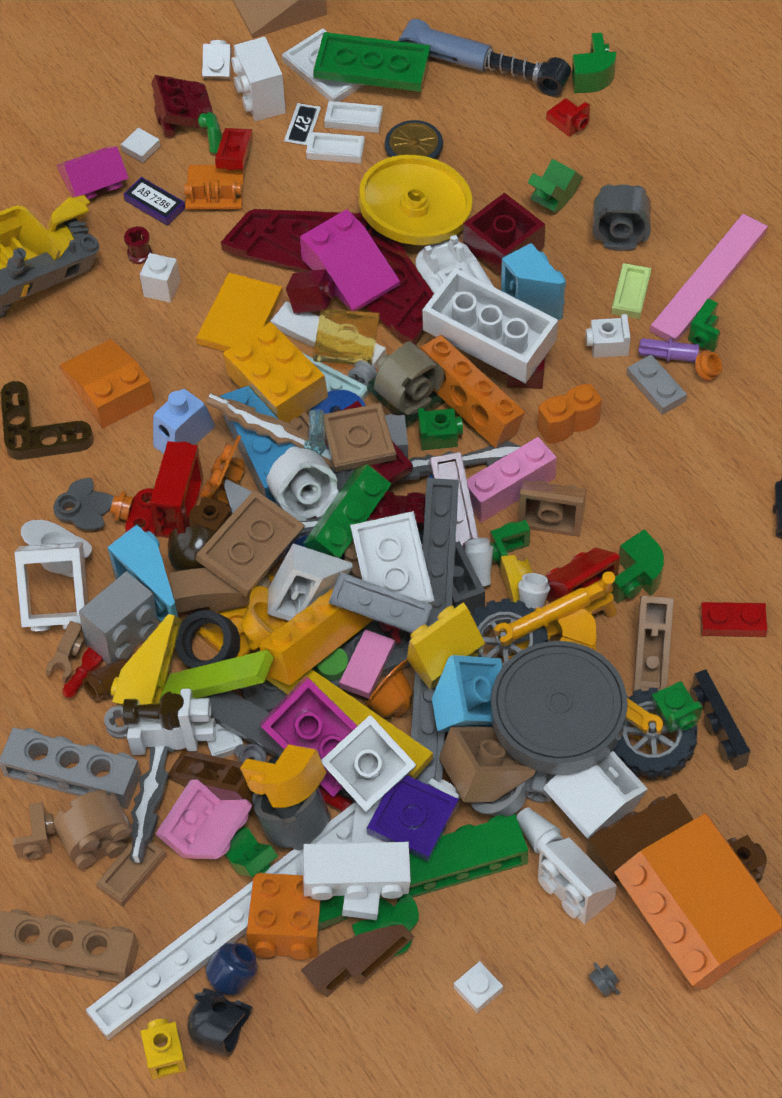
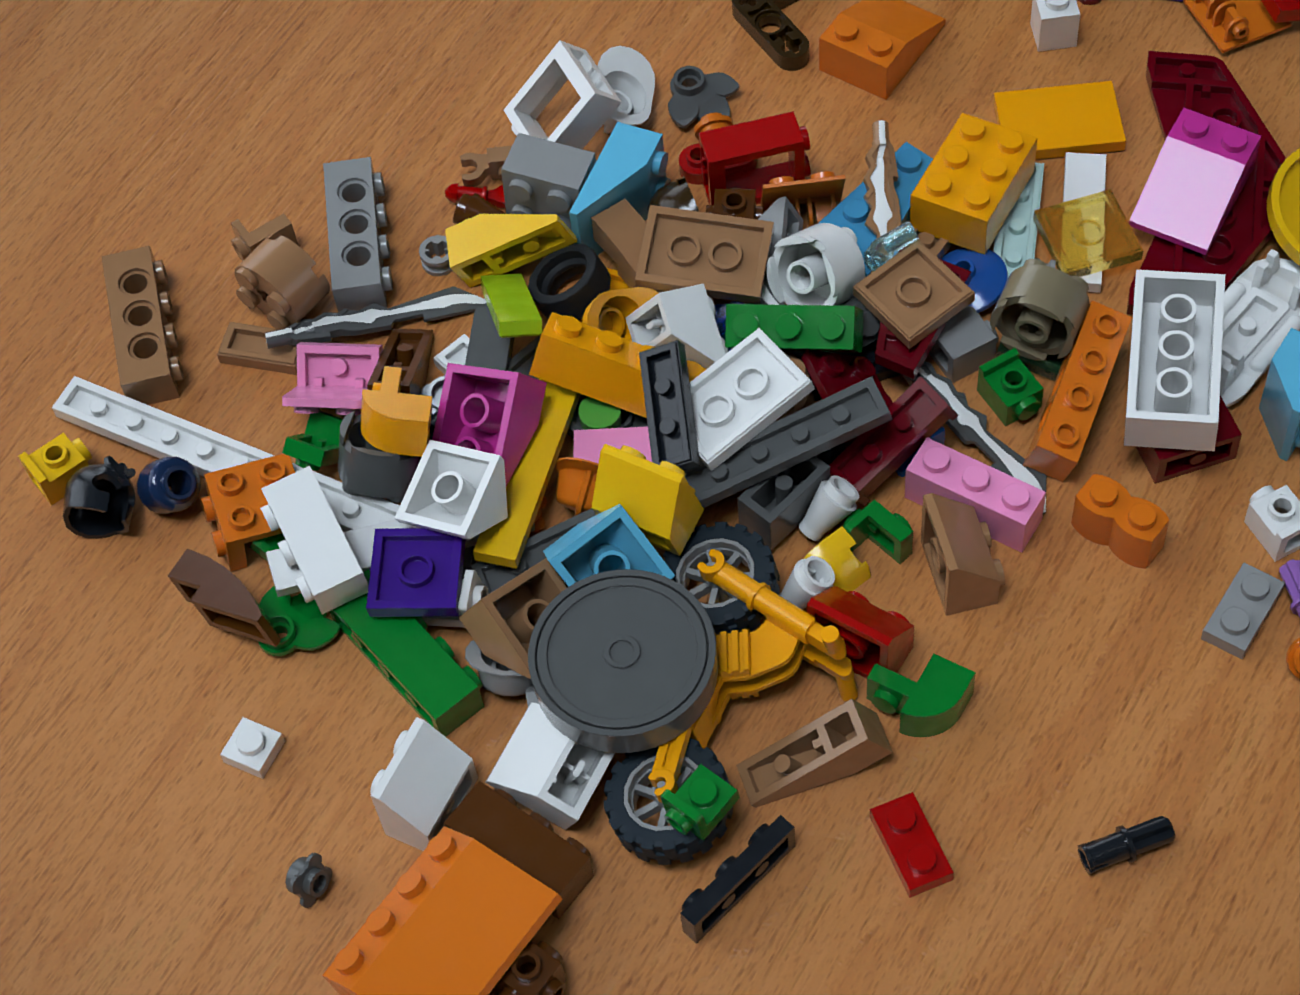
camera: 70 degrees right, 0 degrees up
(173, 722) = (440, 286): white hips -> none
(180, 420) = (847, 123): light blue torso -> none
(310, 291) = (1122, 163): dark red brick -> none
(537, 829) = (481, 728): white cone -> none

